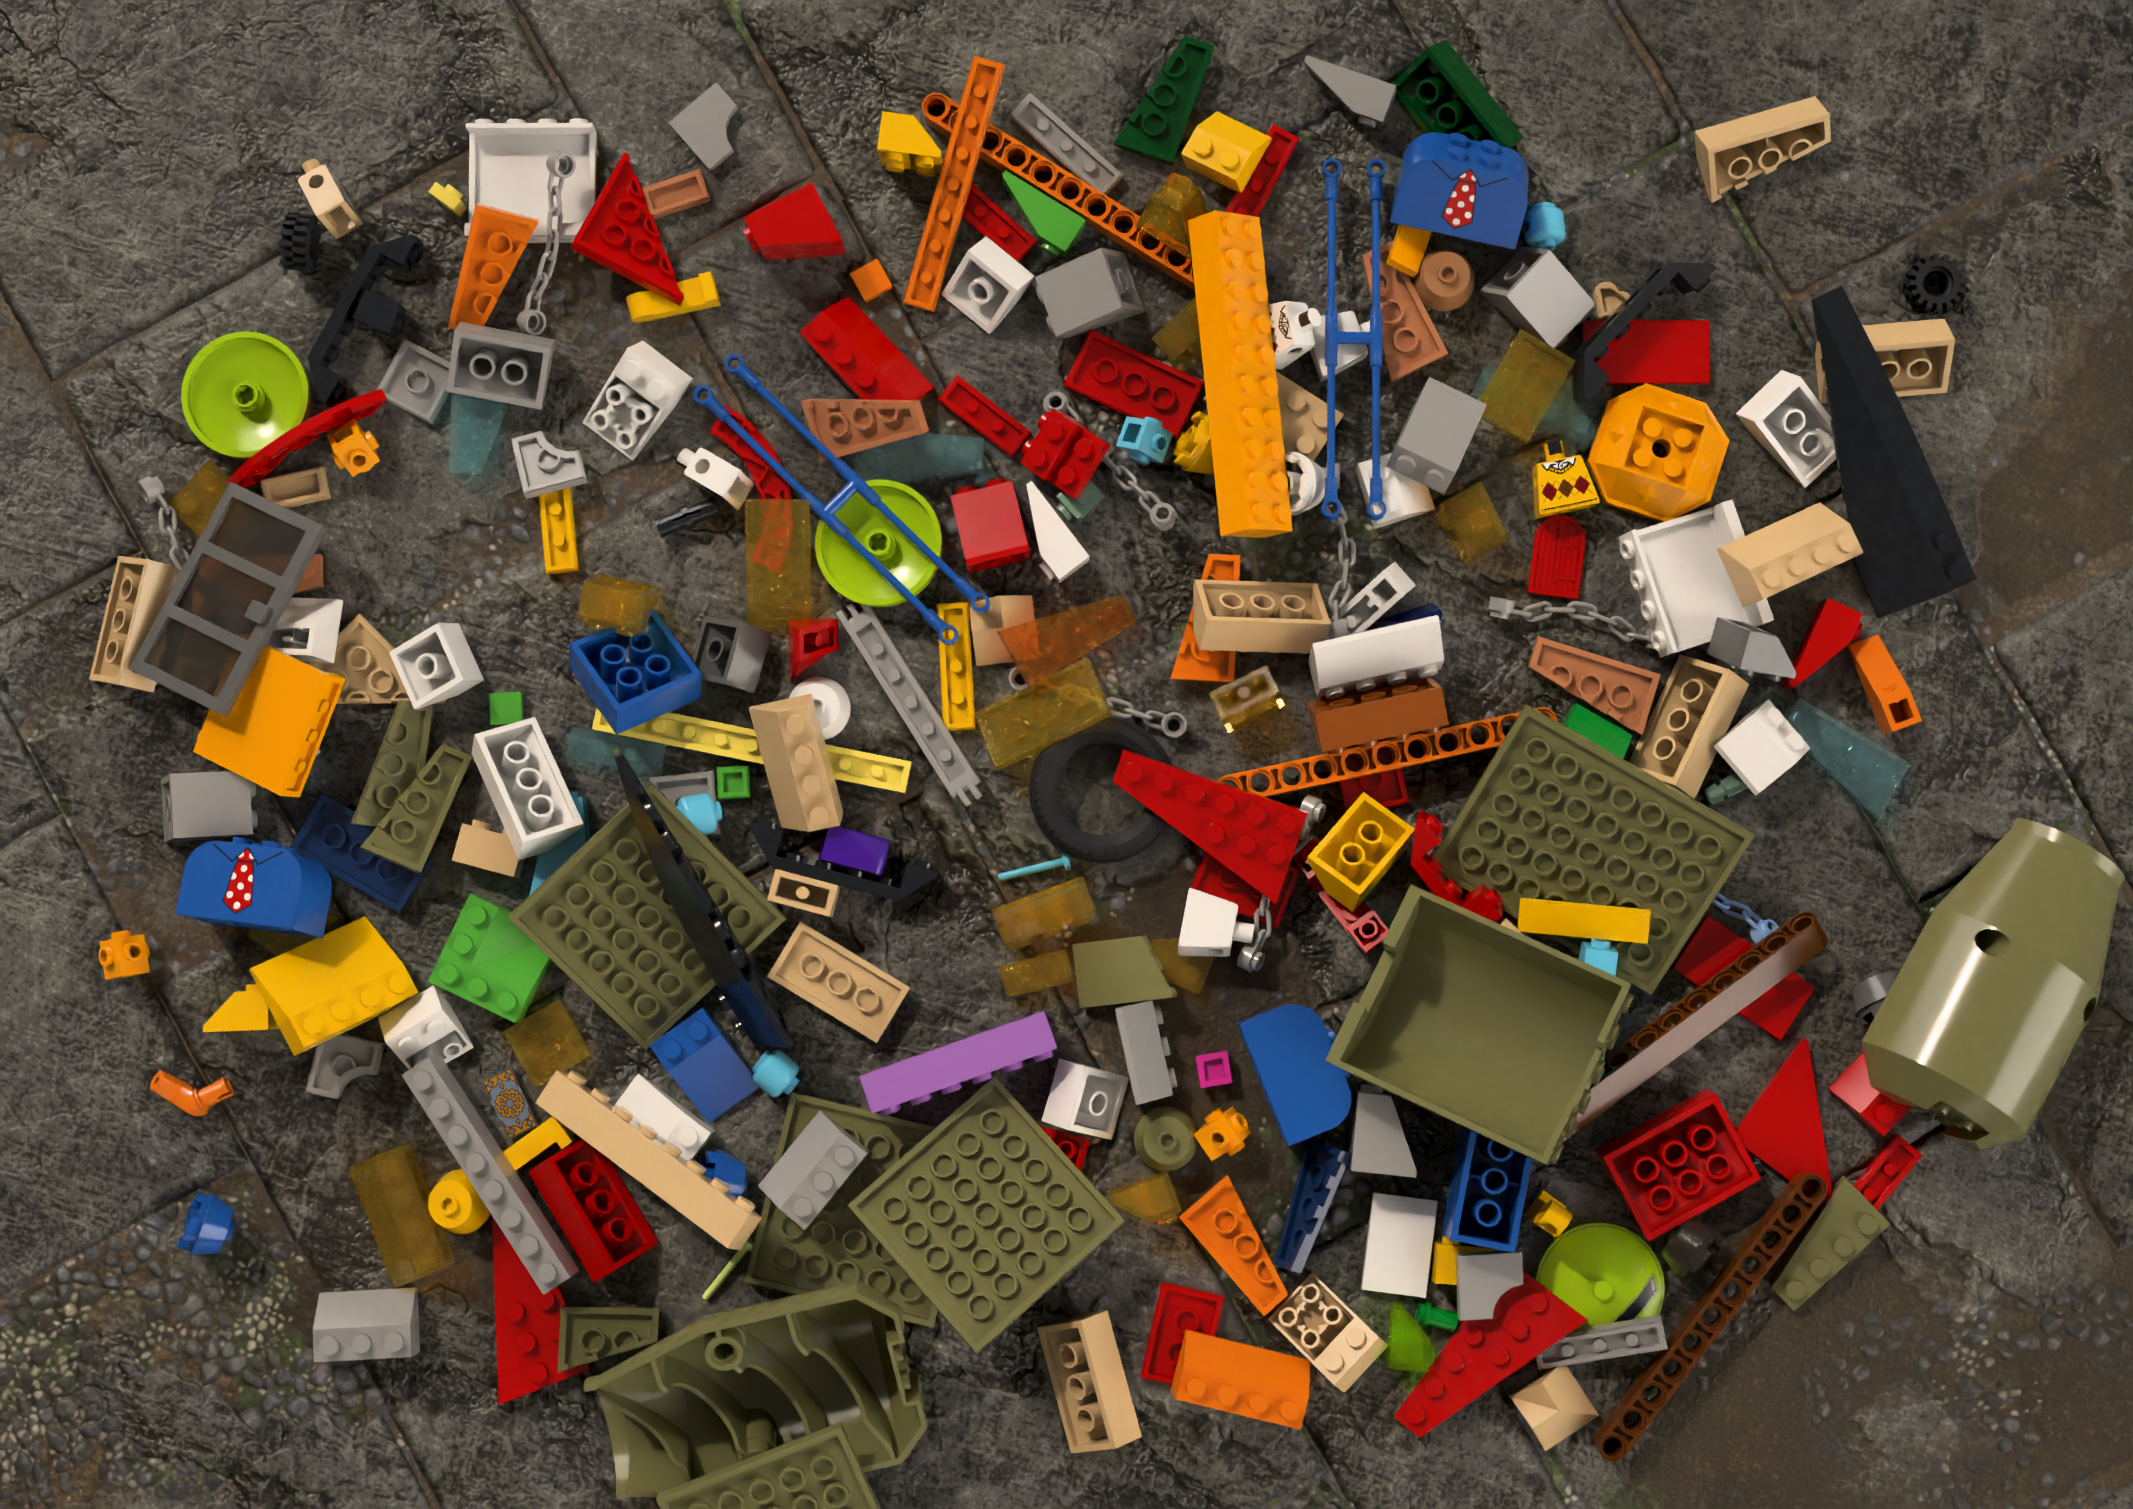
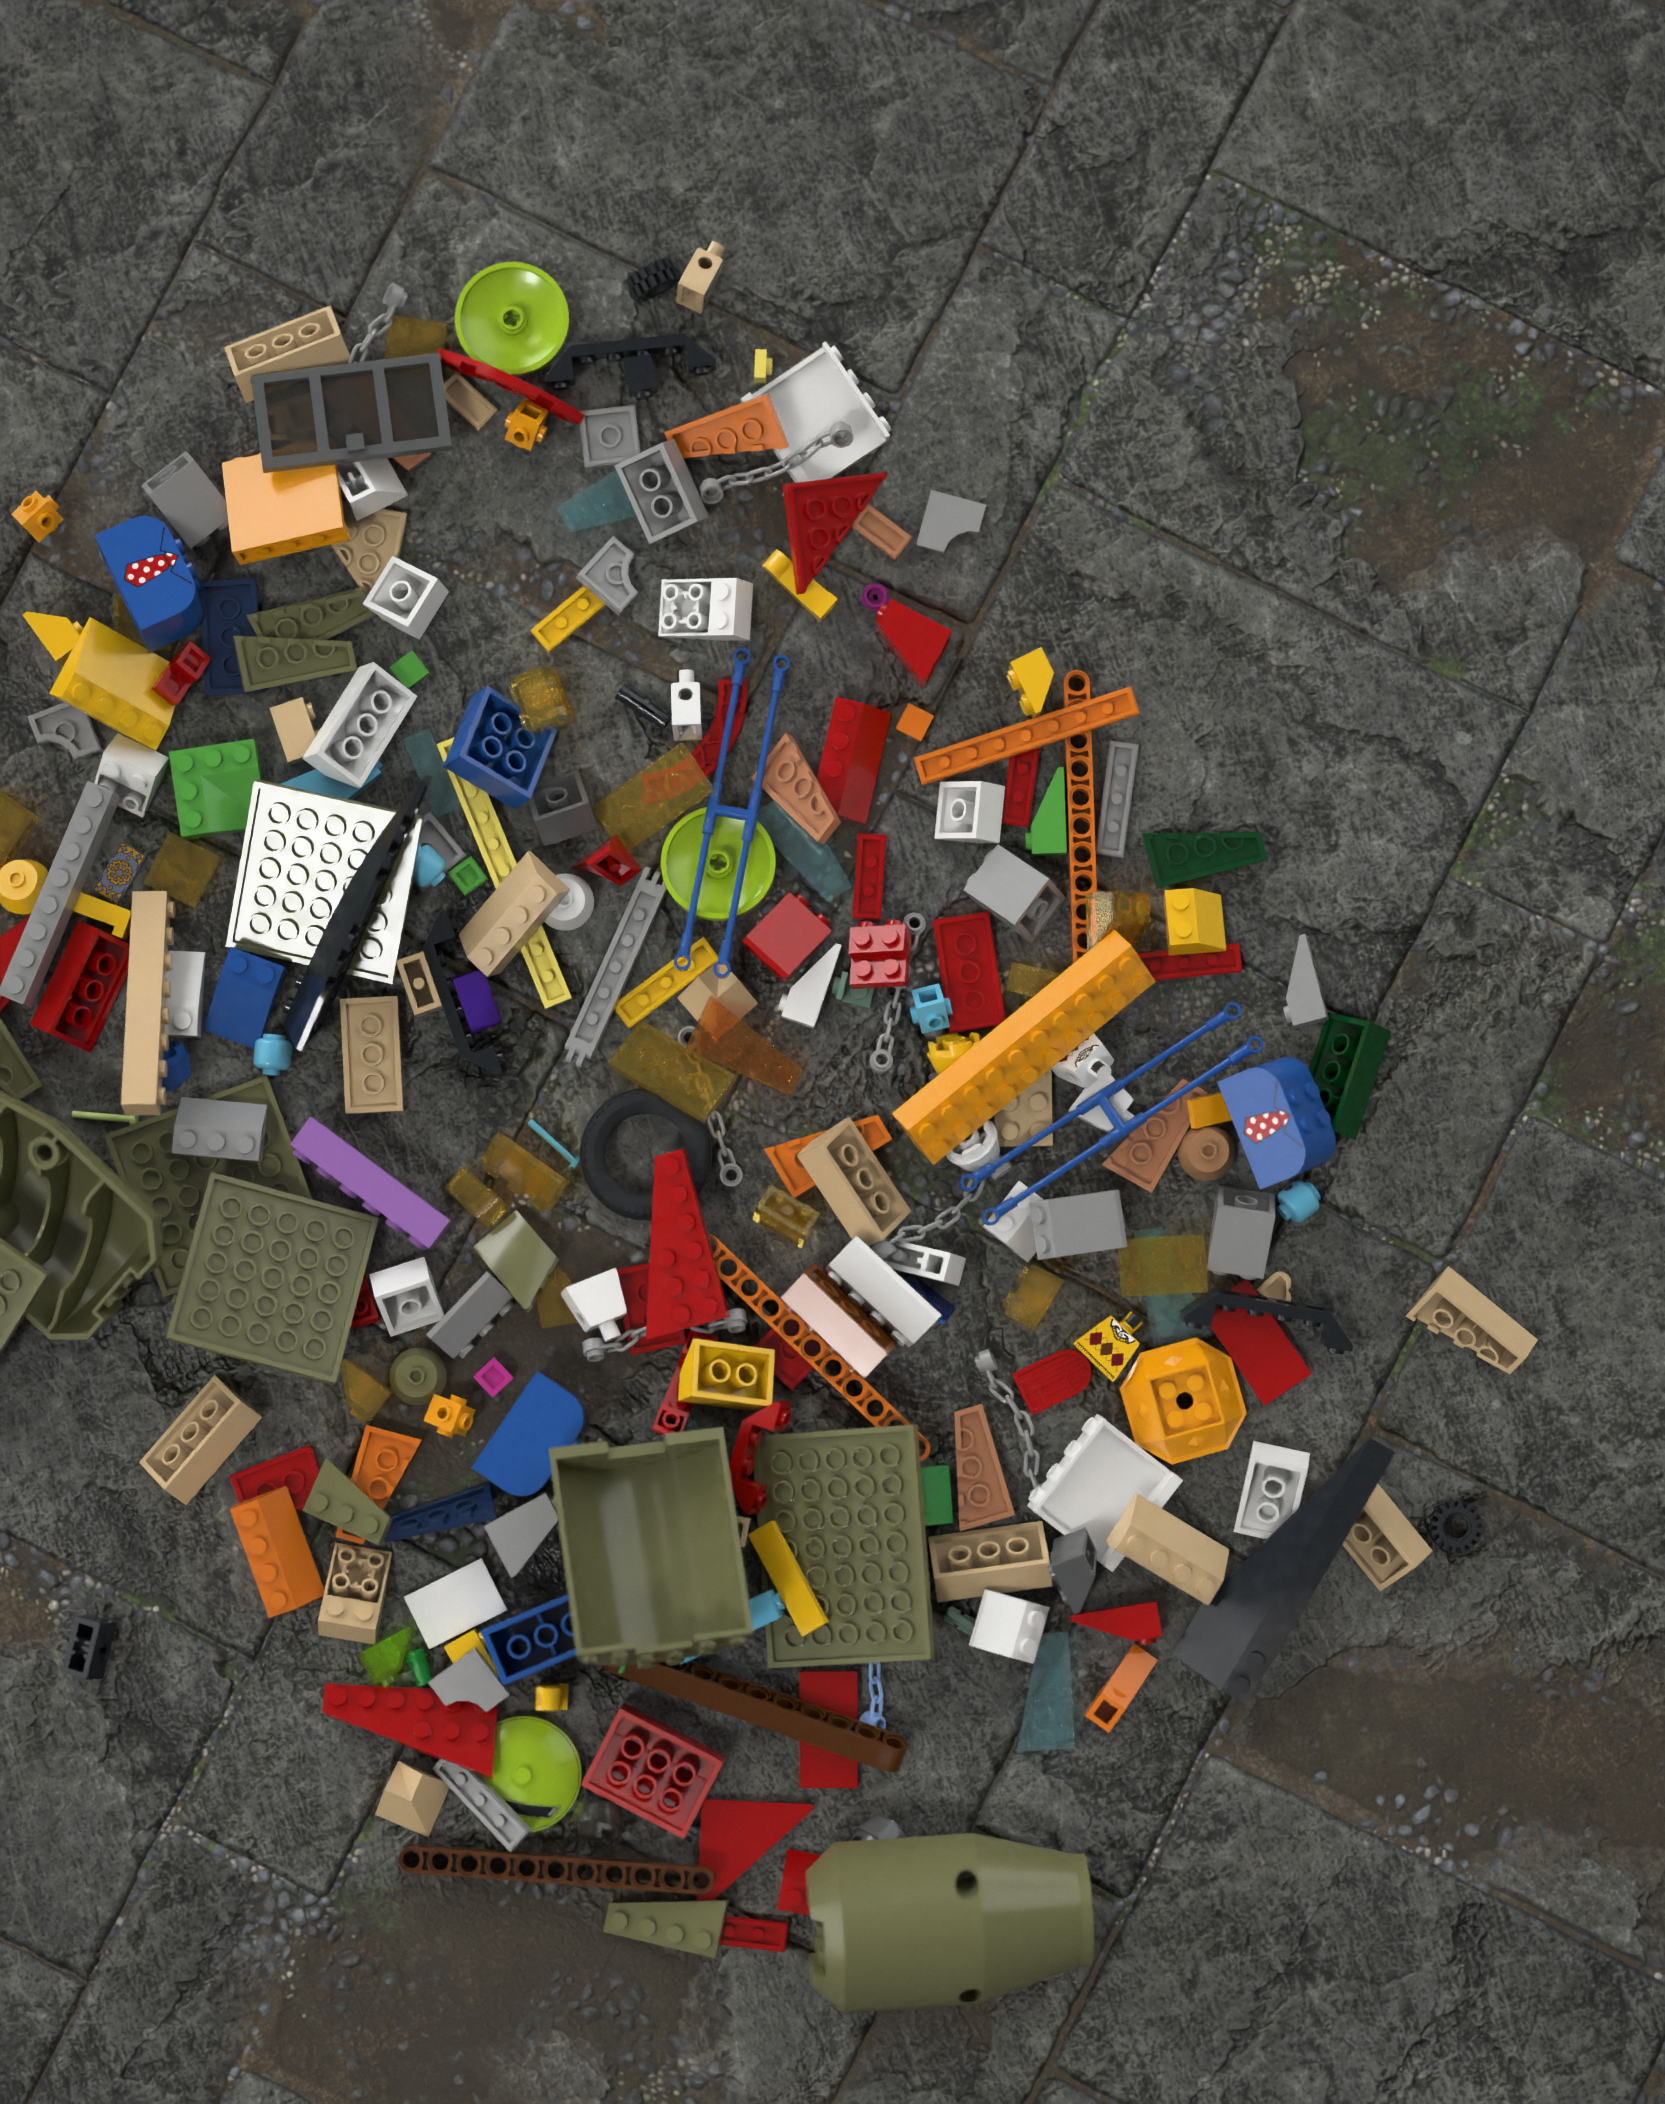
camera: 55 degrees right, 0 degrees up
(362, 920) = (180, 673): none -> red slope
(728, 231) = (871, 590): none -> magenta plate
(1242, 1287) = (346, 1506): none -> olive wing

